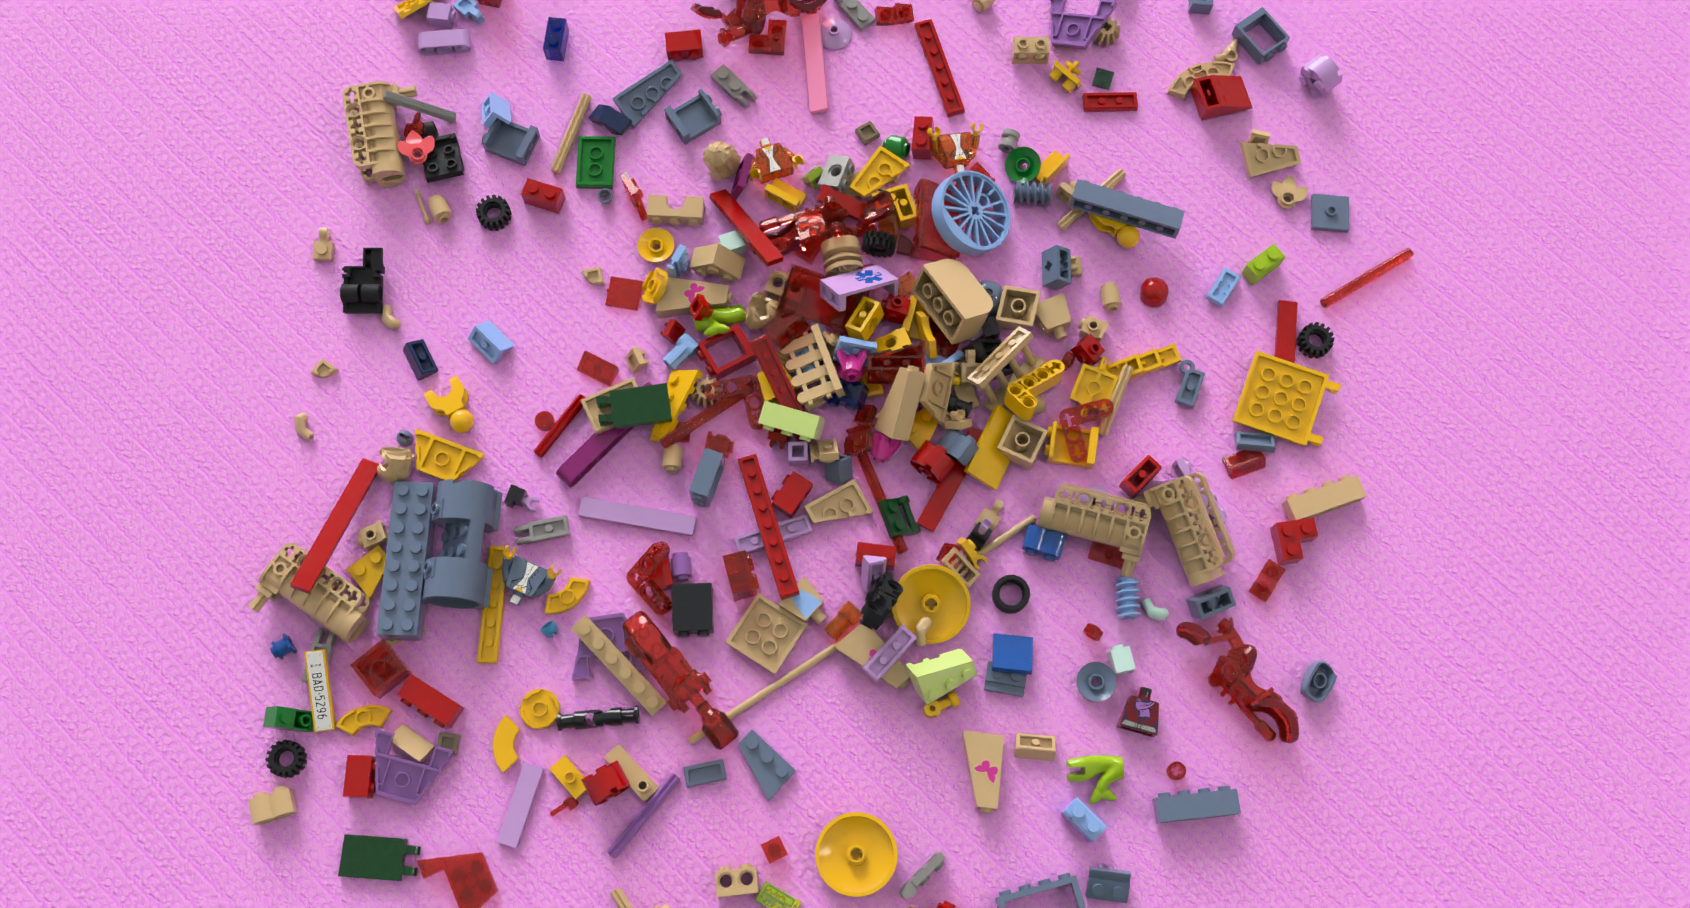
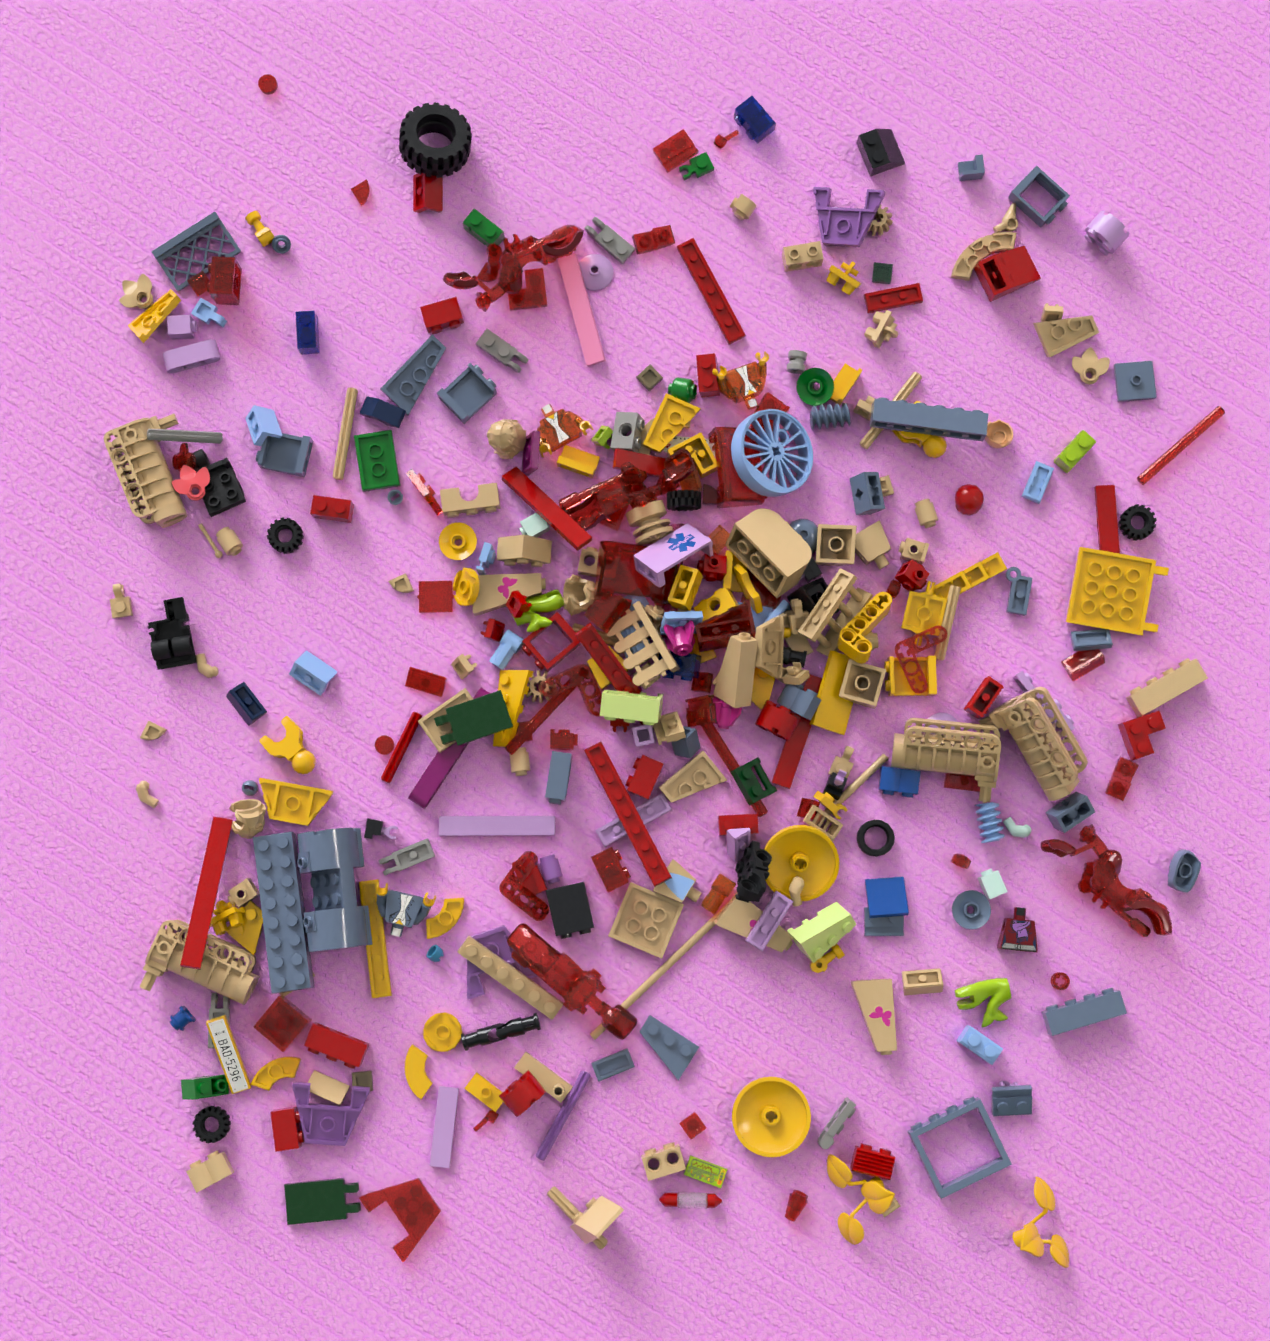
camera: 10 degrees left, 10 degrees up
(352, 552) = (224, 913): none -> yellow hips
(1097, 126) = (884, 331): none -> tan hips
(1191, 236) = (999, 434): none -> light nougat hair

